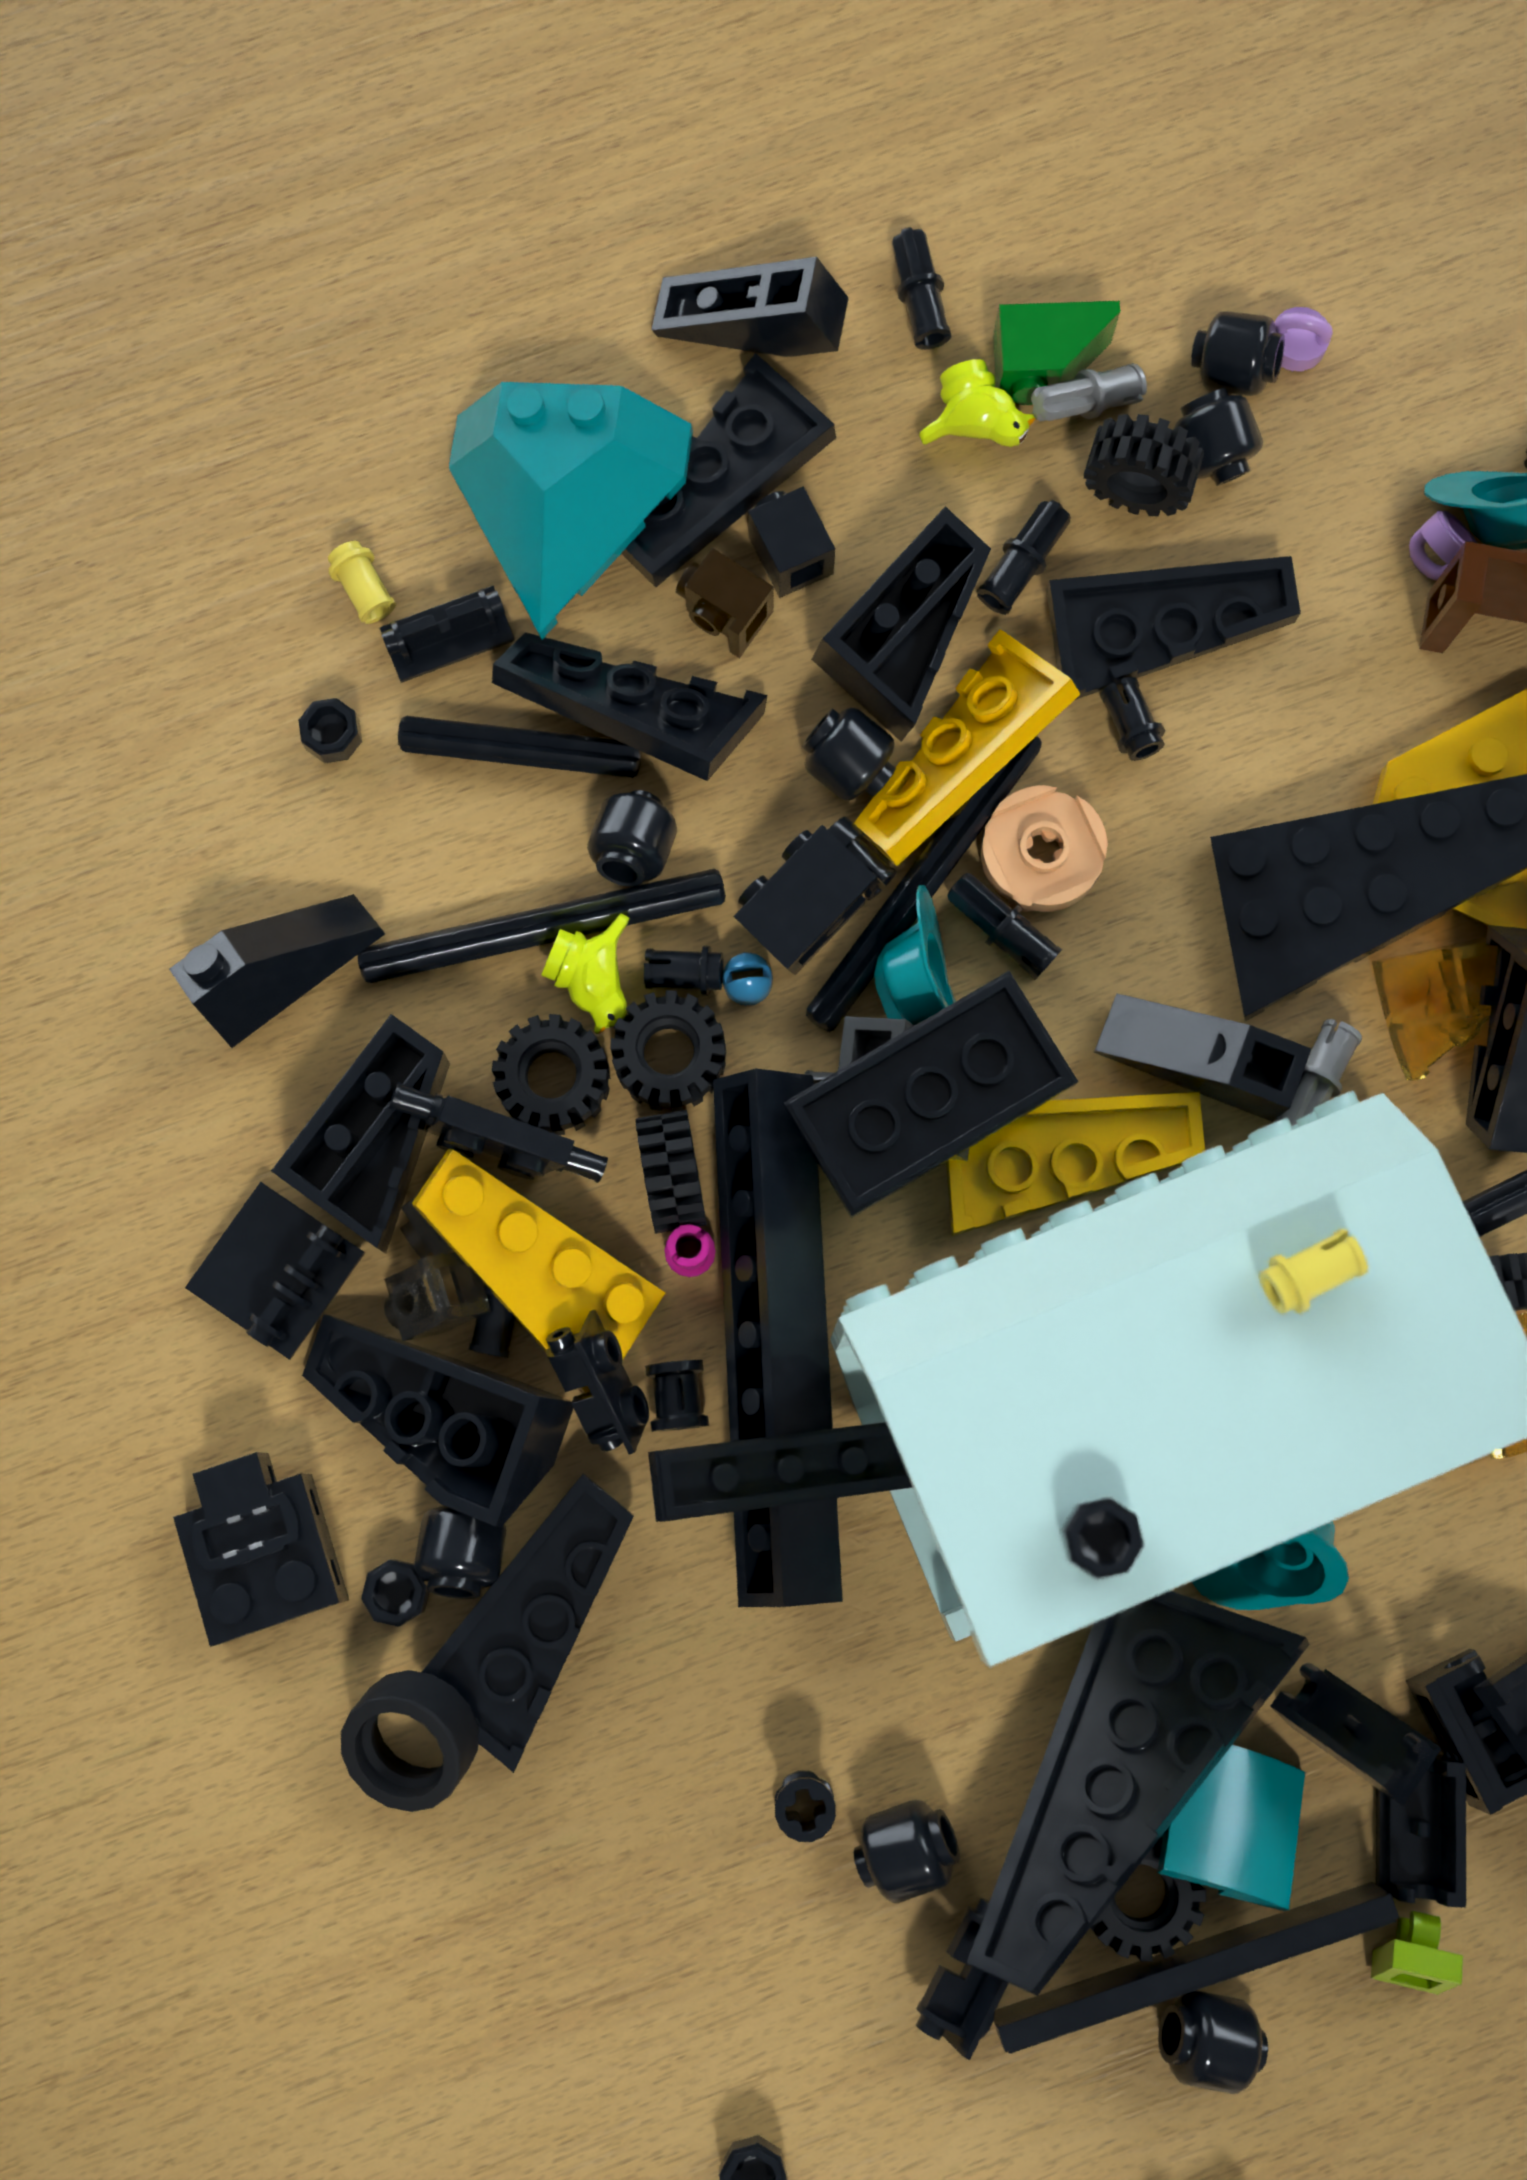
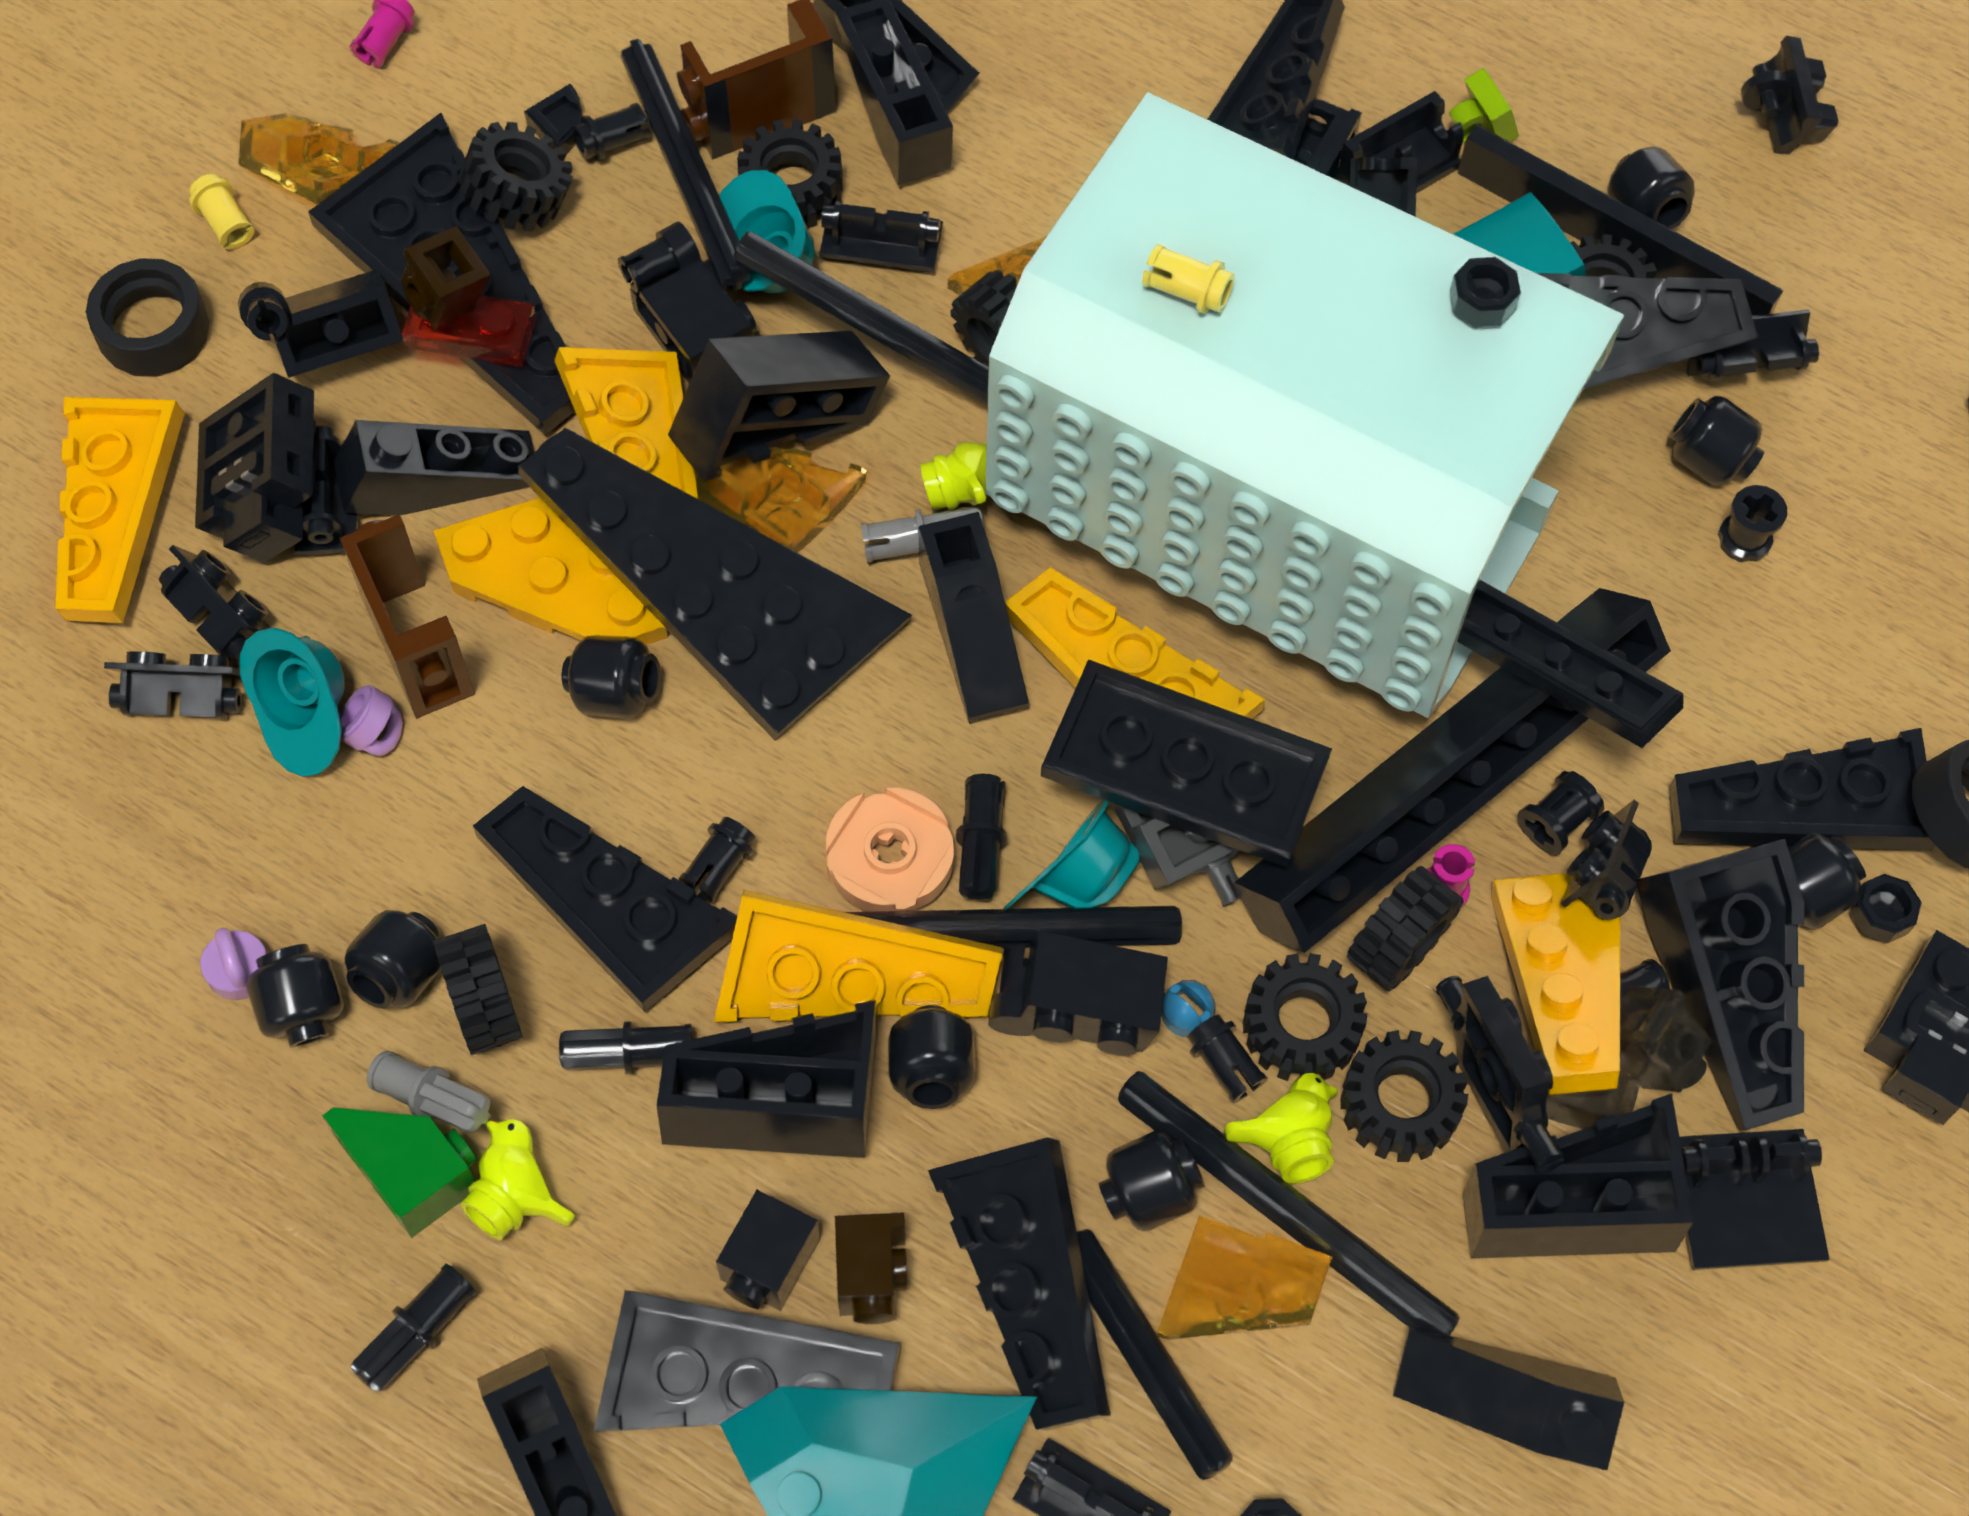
camera: 130 degrees left, 15 degrees down
(511, 846) = (1242, 1284): none -> clear yellow slope
(1354, 742) = (611, 676): none -> black head

